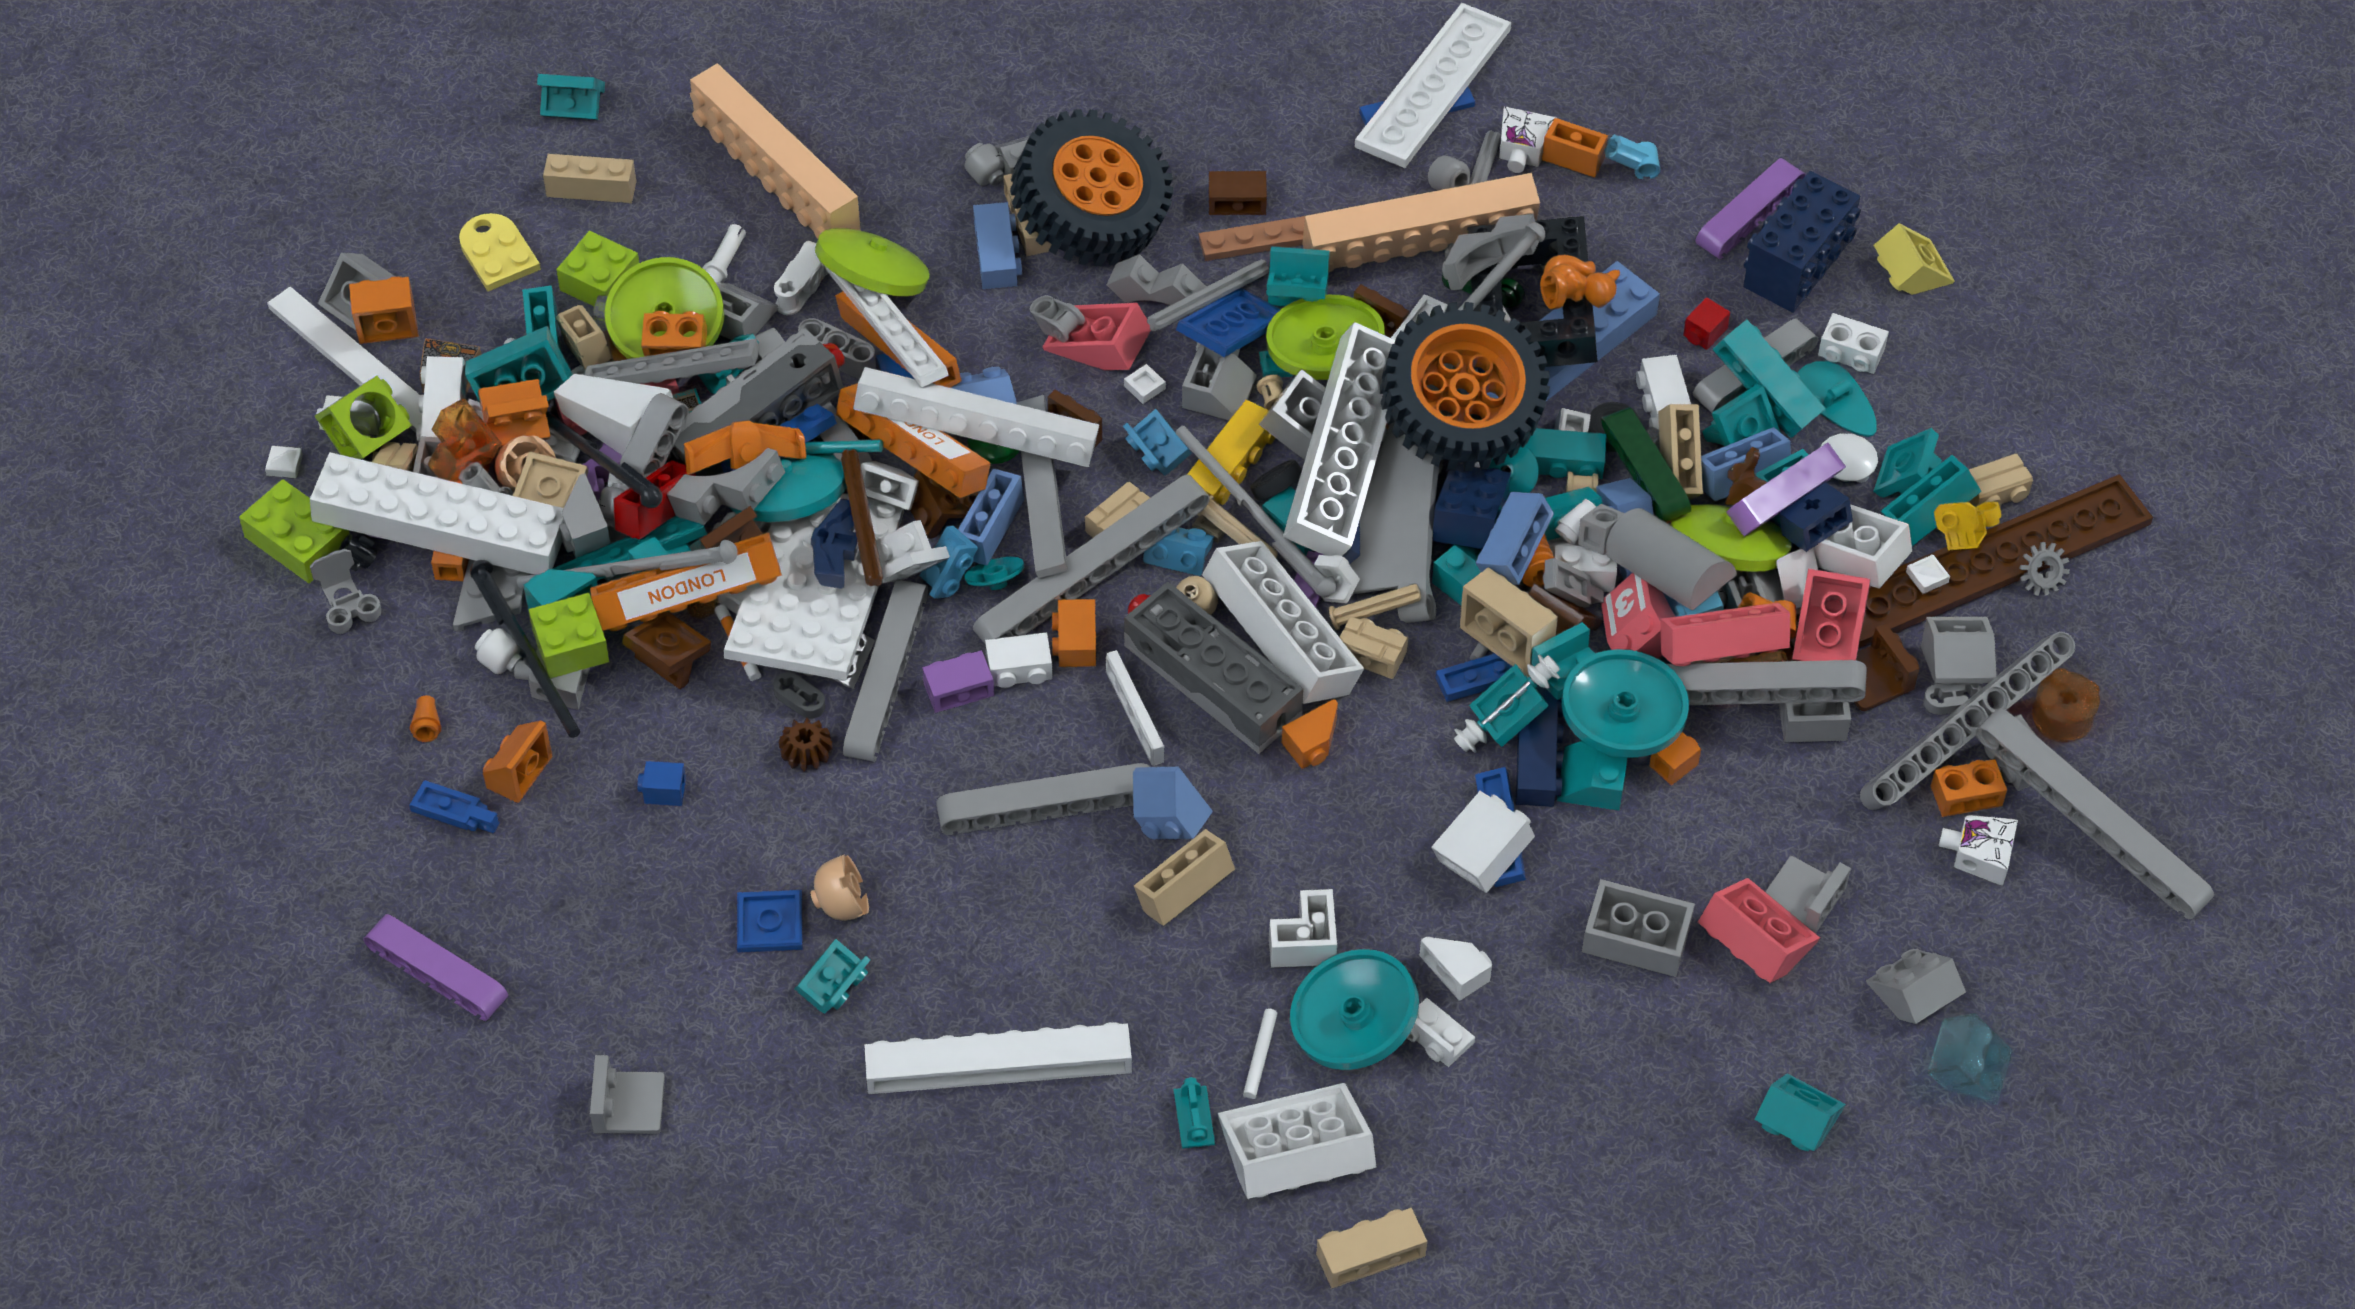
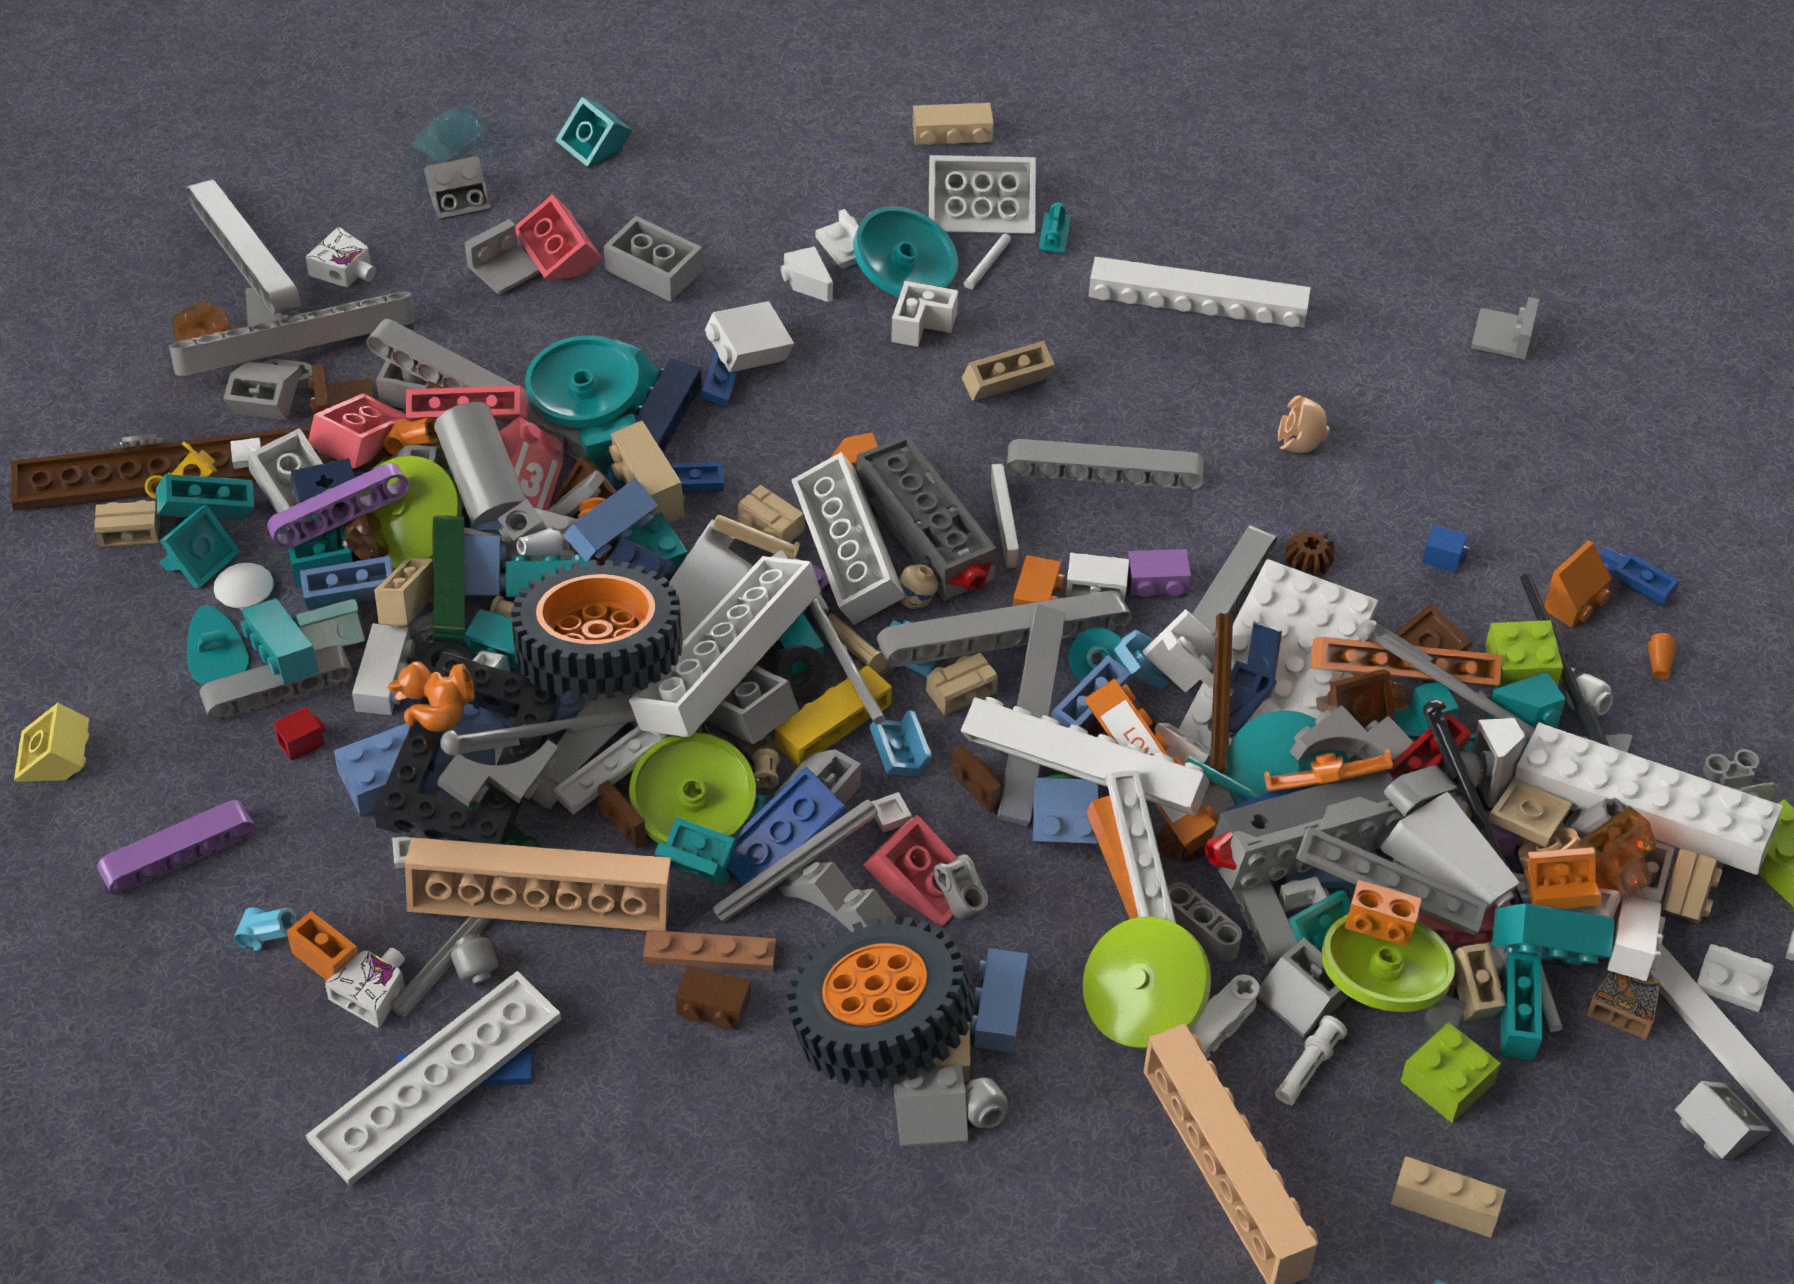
camera: 165 degrees left, 5 degrees down
(339, 428) = (1724, 927): lime brick -> none
(383, 310) = (1700, 1054): orange slope -> none
(437, 966) = (1660, 454): medium lavender beam -> none
(498, 253) = (1562, 1143): light yellow plate -> none
(769, 921) = (1366, 434): blue tile -> none
(831, 976) = (1319, 372): teal bracket -> none
(1167, 803) = (1003, 411): medium blue slope -> none
(1508, 705) = (679, 420): teal plate -> none
(1801, 241) = (157, 768): dark blue brick -> none
(1853, 343) = (168, 679): white brick -> none
(1969, 792) = (322, 294): orange brick -> none

